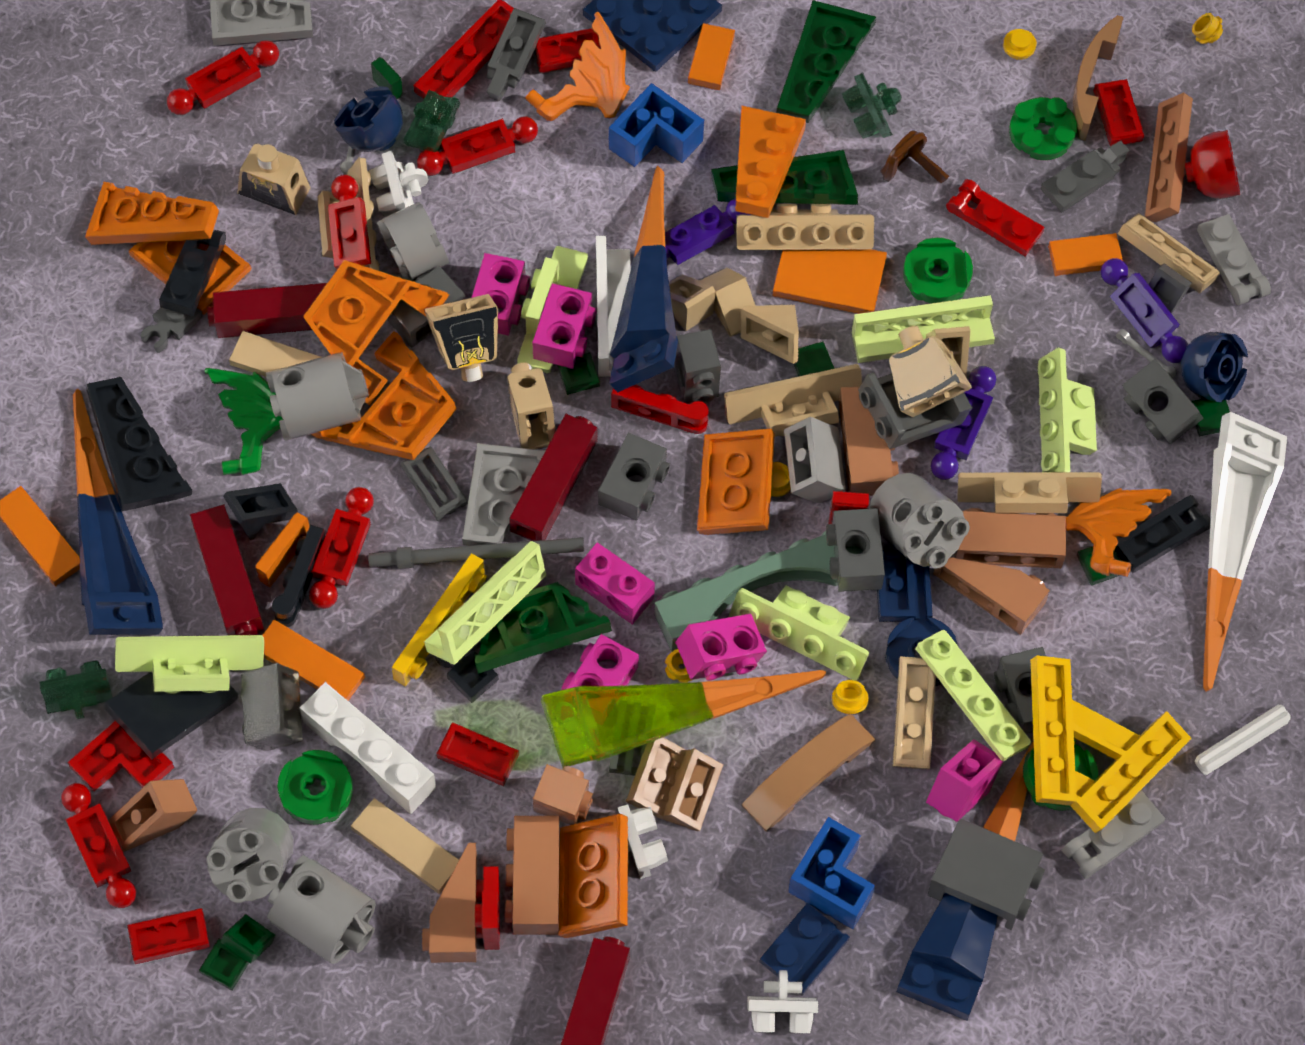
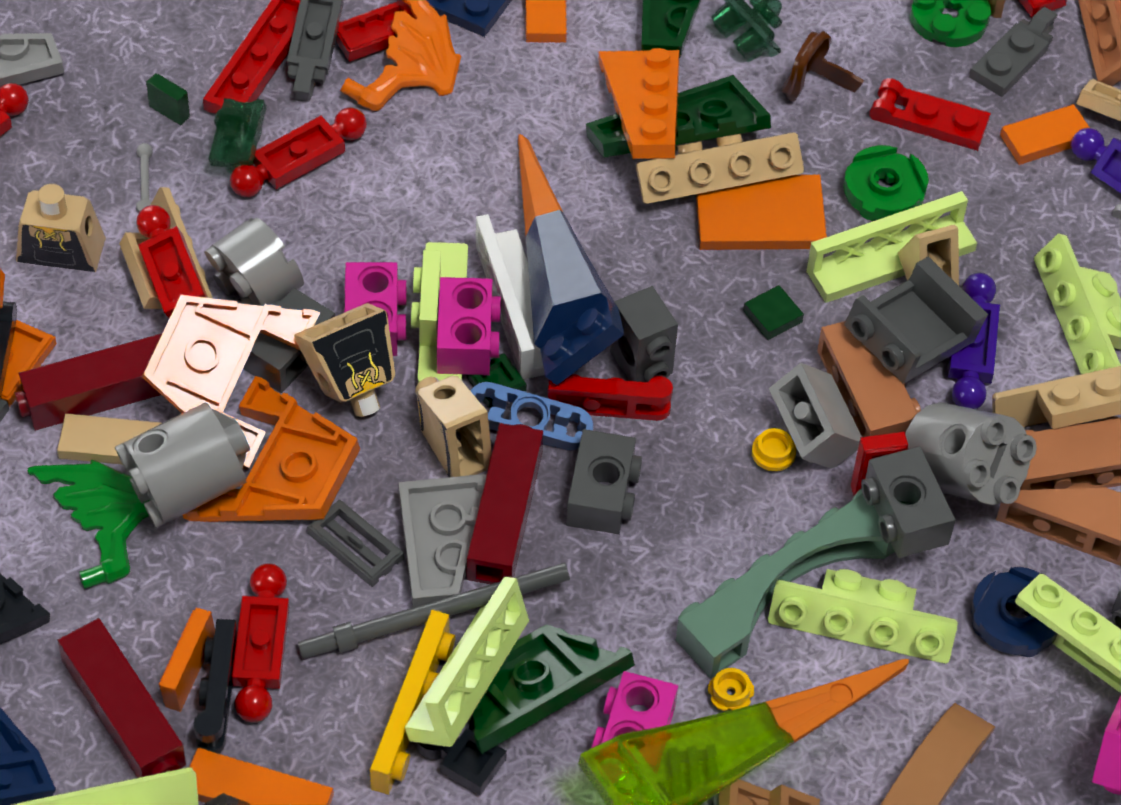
camera: 15 degrees left, 10 degrees down
(260, 506) = (141, 613): black slope -> none
(371, 122) = (165, 146): dark blue cylinder -> none
(401, 181) = (203, 201): white hips -> none
(591, 396) = (545, 406): none -> medium blue beam
(614, 583) = (619, 609): dark pink brick -> none
(653, 121) = (507, 83): blue brick -> none
(691, 300) = (616, 266): tan slope -> none
(700, 232) = (599, 192): dark purple plate -> none
(721, 647) = (776, 655): dark pink brick -> none
(730, 297) = (654, 261): tan slope -> none
(736, 482) = (728, 462): orange tile -> none
(772, 329) = (717, 281): tan slope -> none
(792, 399) = (763, 356): tan bracket -> none
(850, 697) = (949, 682): yellow plate -> none
(904, 589) = (975, 544): dark blue plate -> none
(914, 714) = (1035, 684): tan tile -> none
(925, 373) = (924, 283): tan torso -> none

